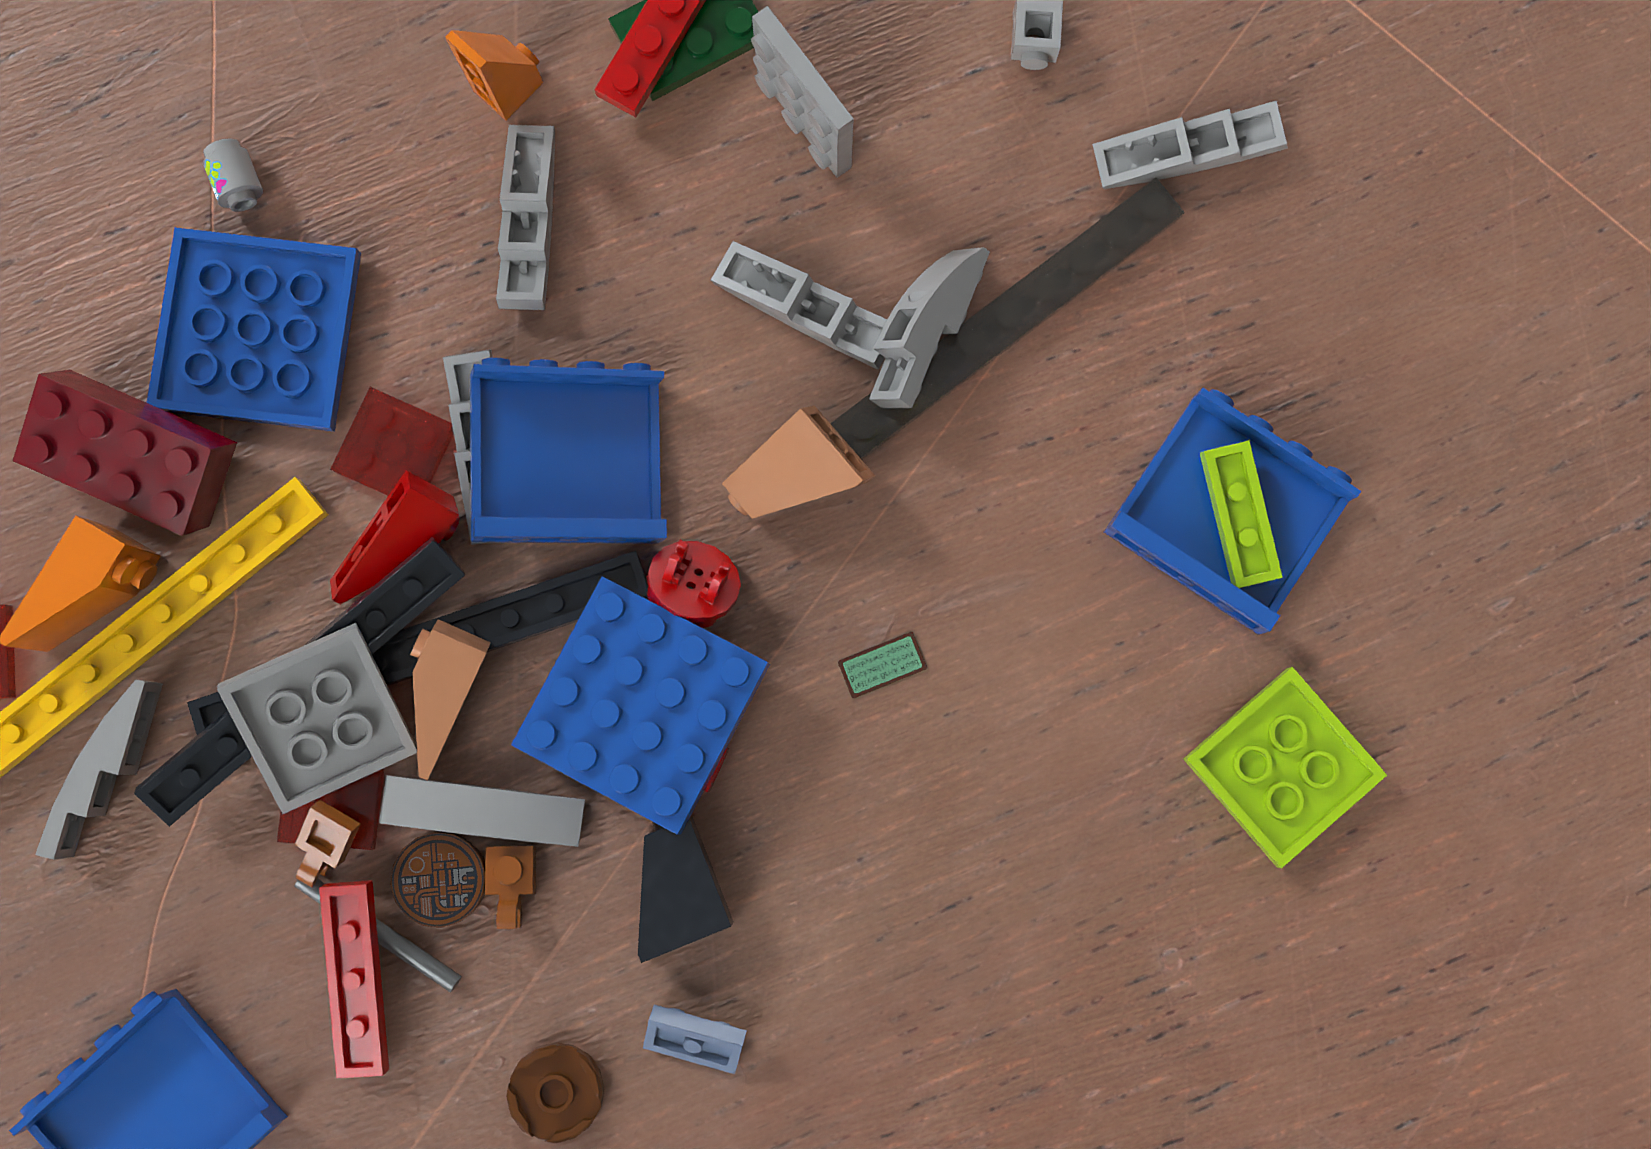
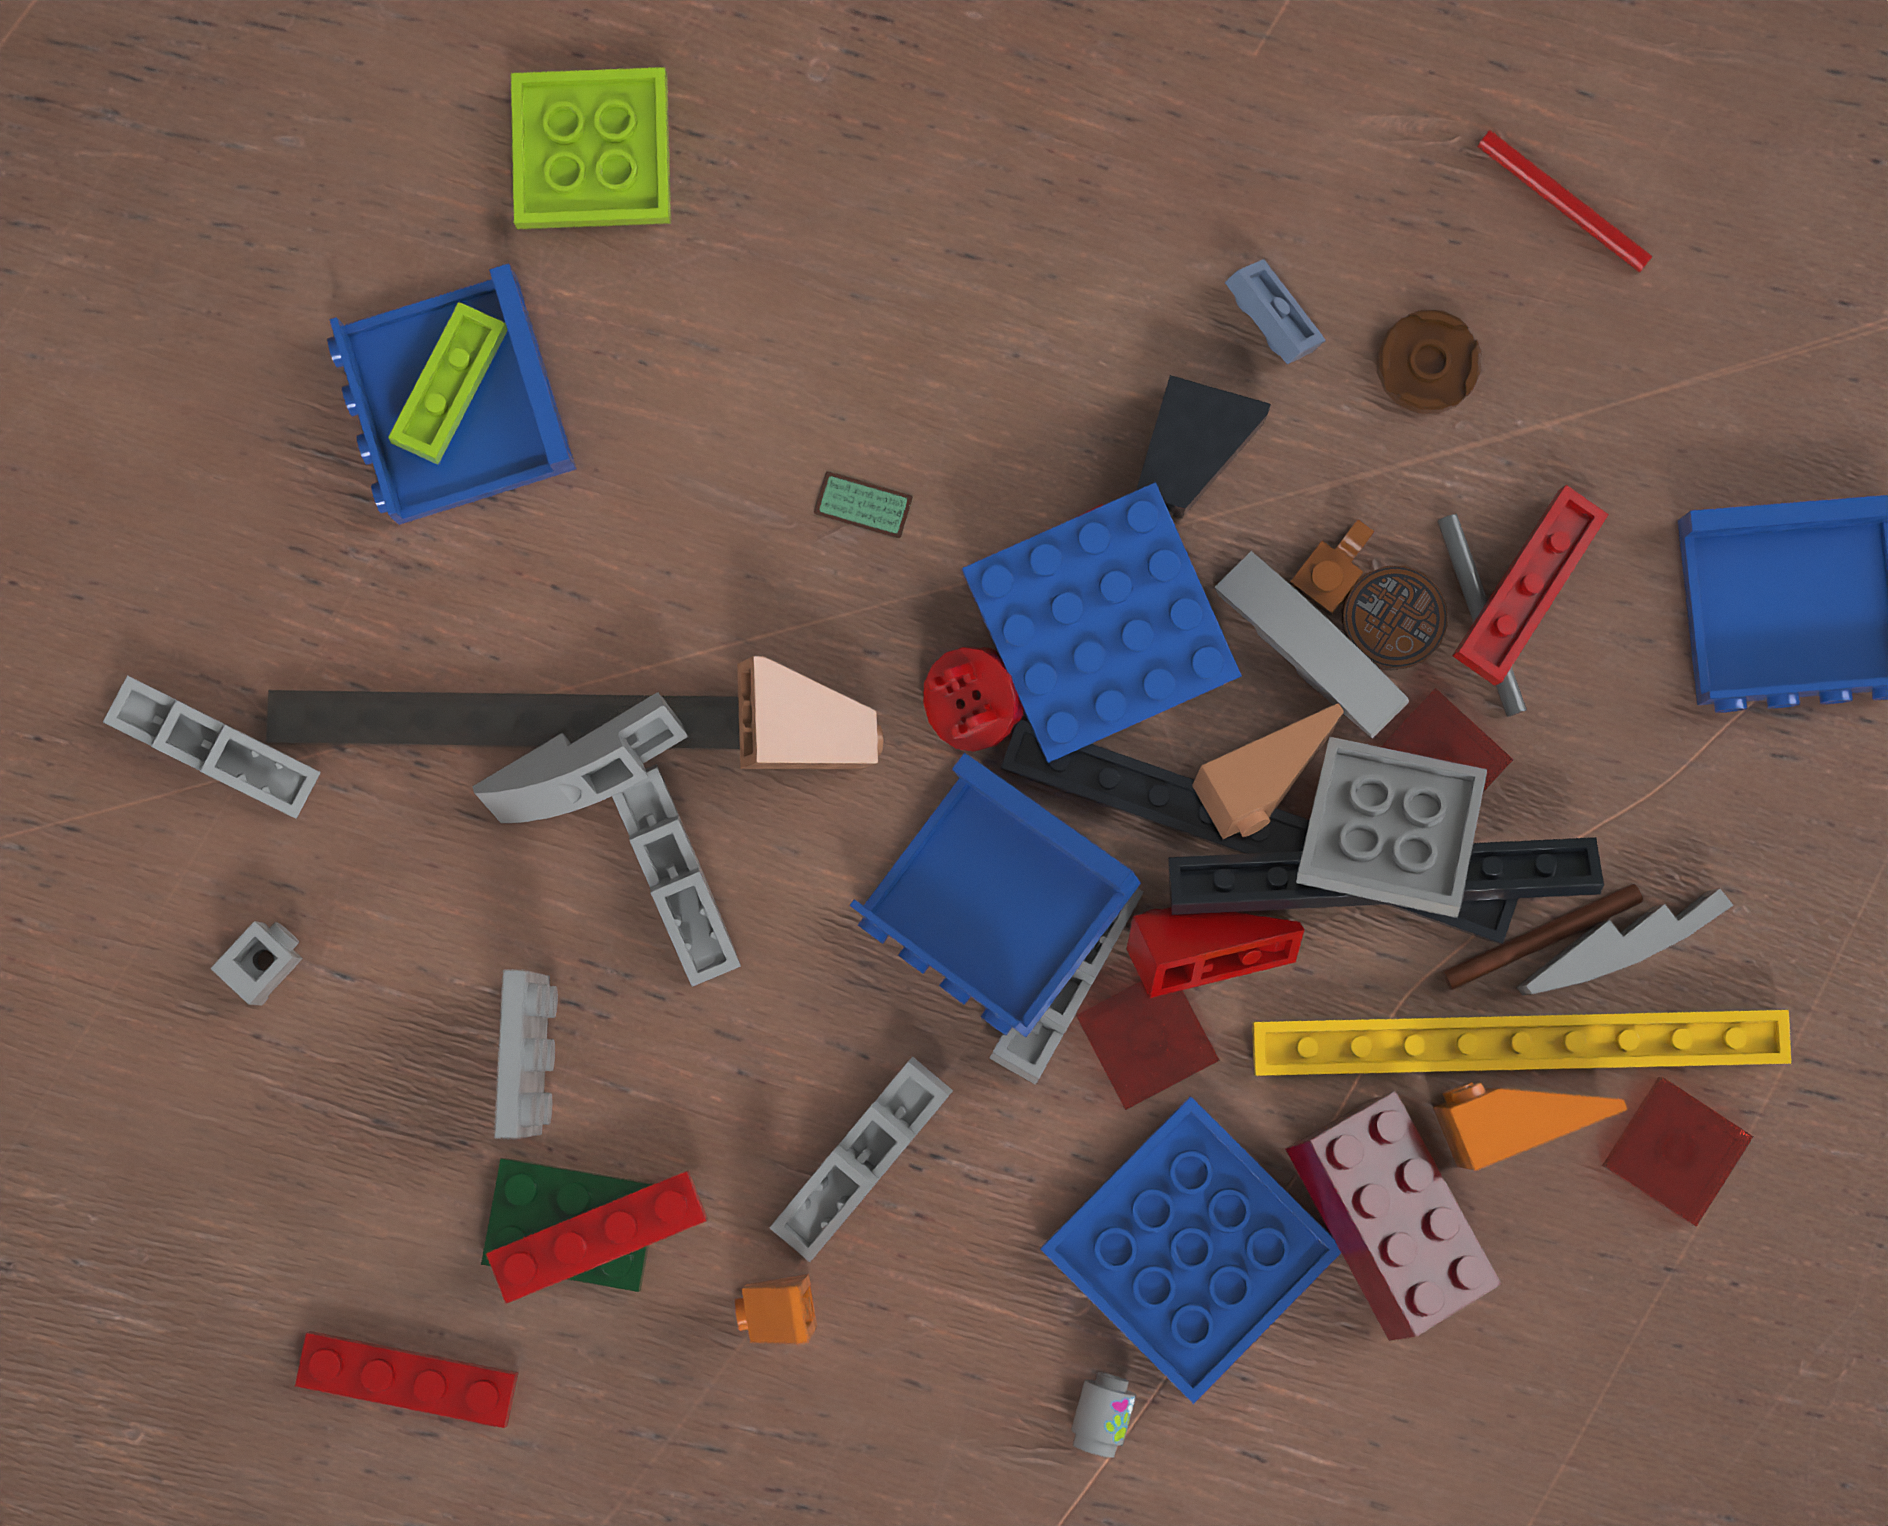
camera: 135 degrees left, 0 degrees up
(167, 730) = (1542, 936): none -> copper bar
(326, 839) = (1467, 722): plate -> none

